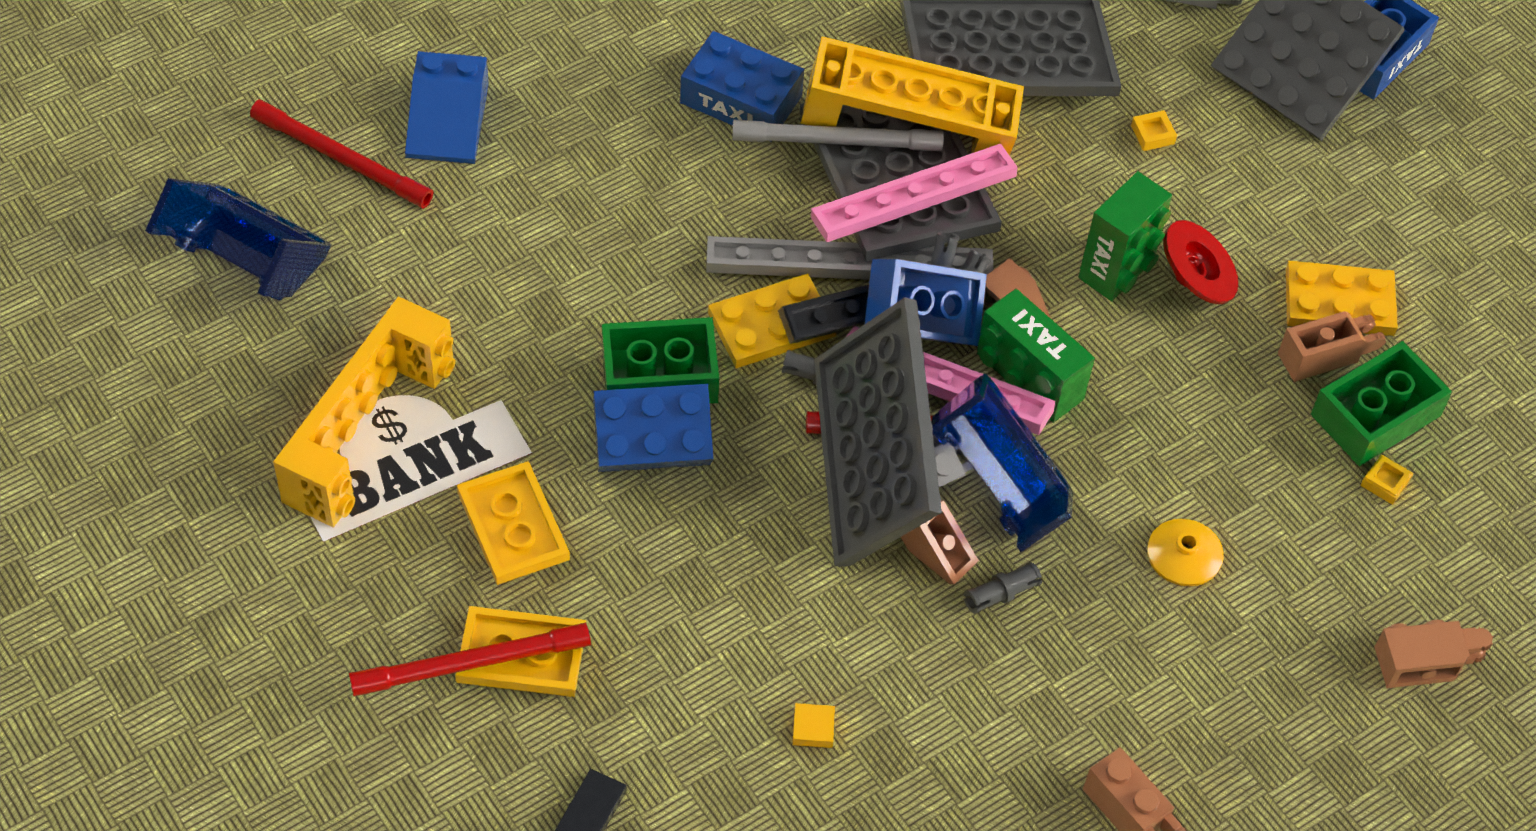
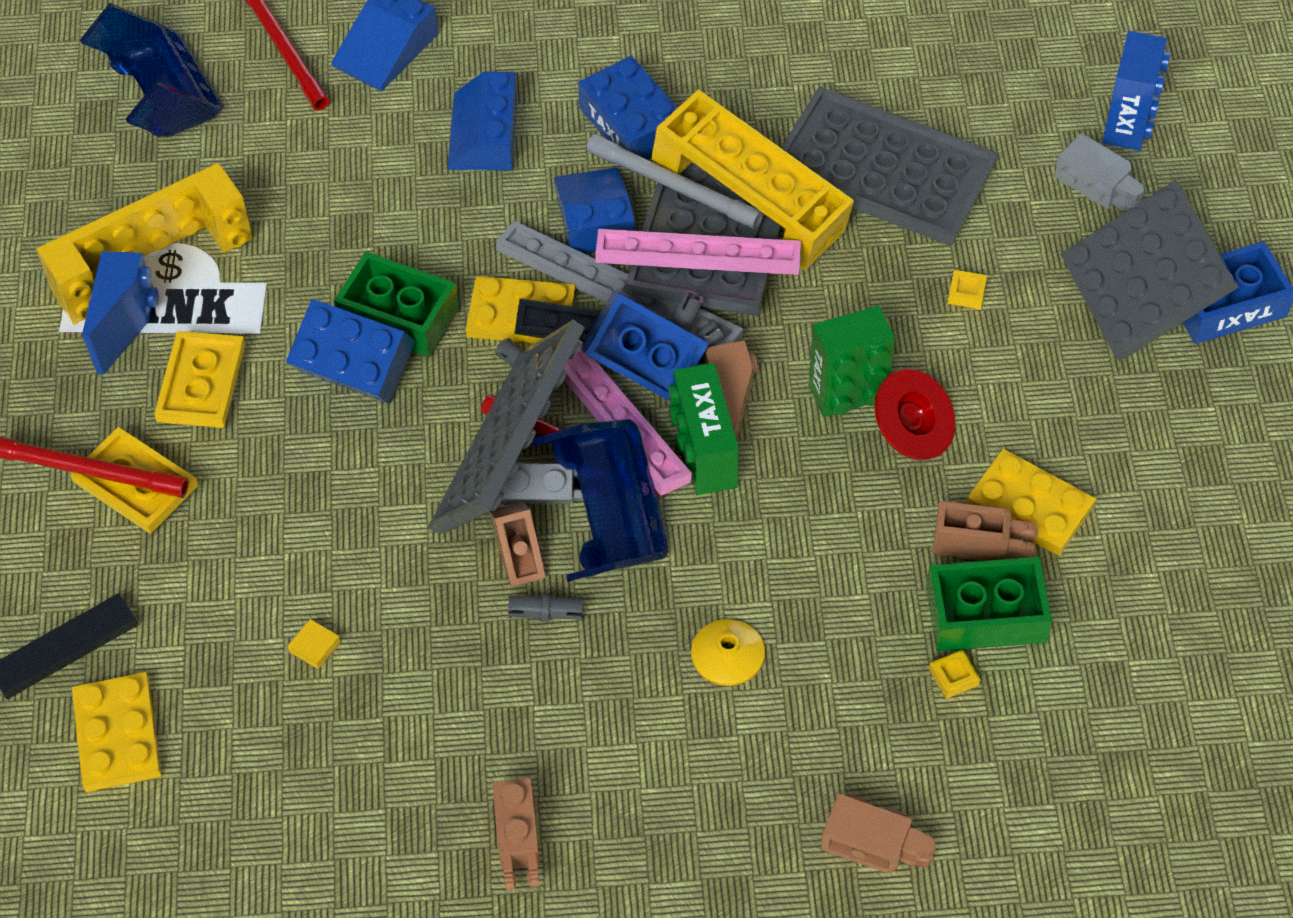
camera: 35 degrees right, 0 degrees up
(382, 473) = (118, 306): none -> blue slope
(607, 153) = (484, 123): none -> blue slope
(772, 192) = (592, 203): none -> blue slope

